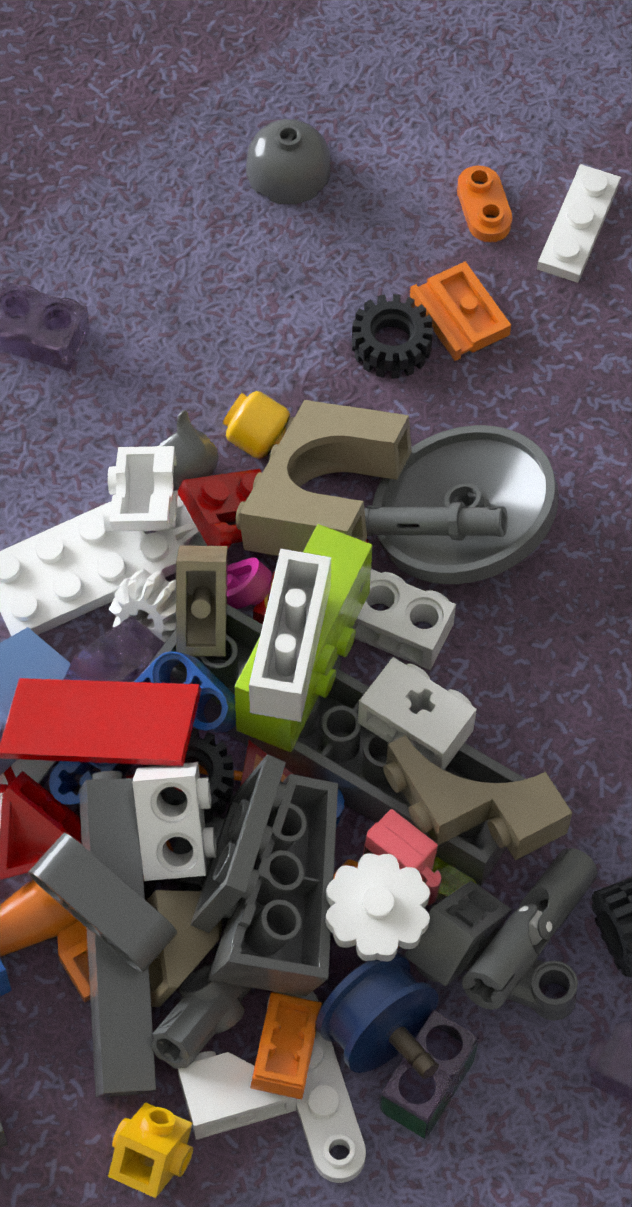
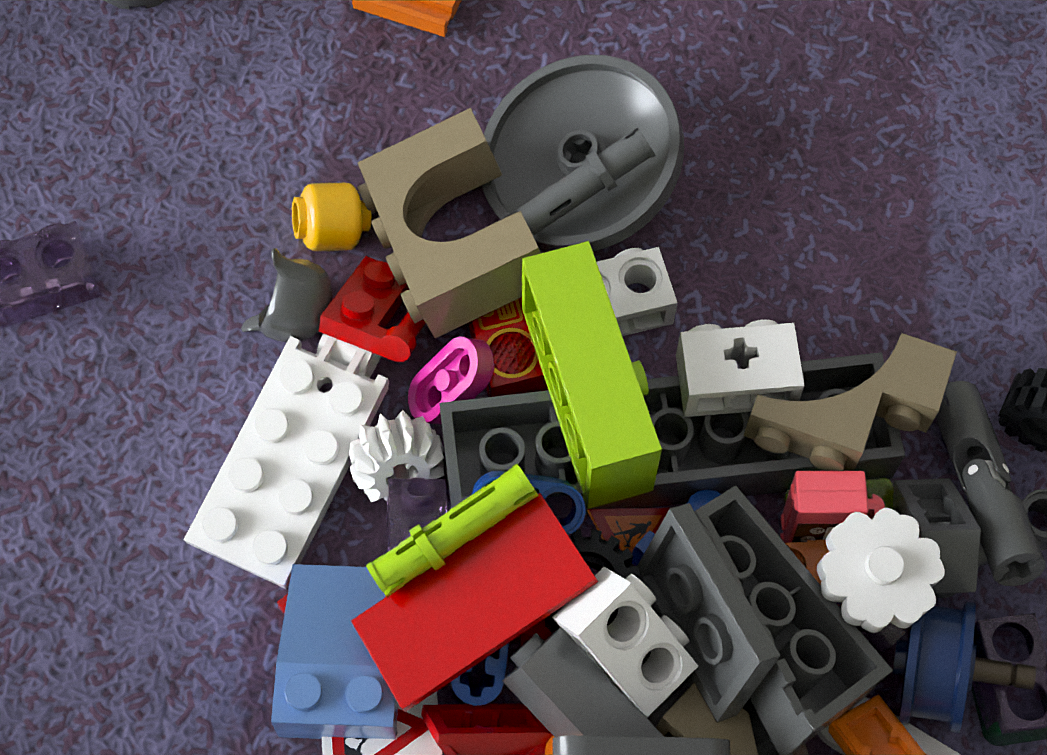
camera: 40 degrees left, 5 degrees up
(132, 665) = (452, 530): none -> lime pin
(142, 490) = (299, 352): white cylinder -> none
(201, 600) = (454, 411): dark tan slope -> none
(290, 635) = (616, 379): white brick -> none
(398, 315) = (371, 28): black tyre -> none

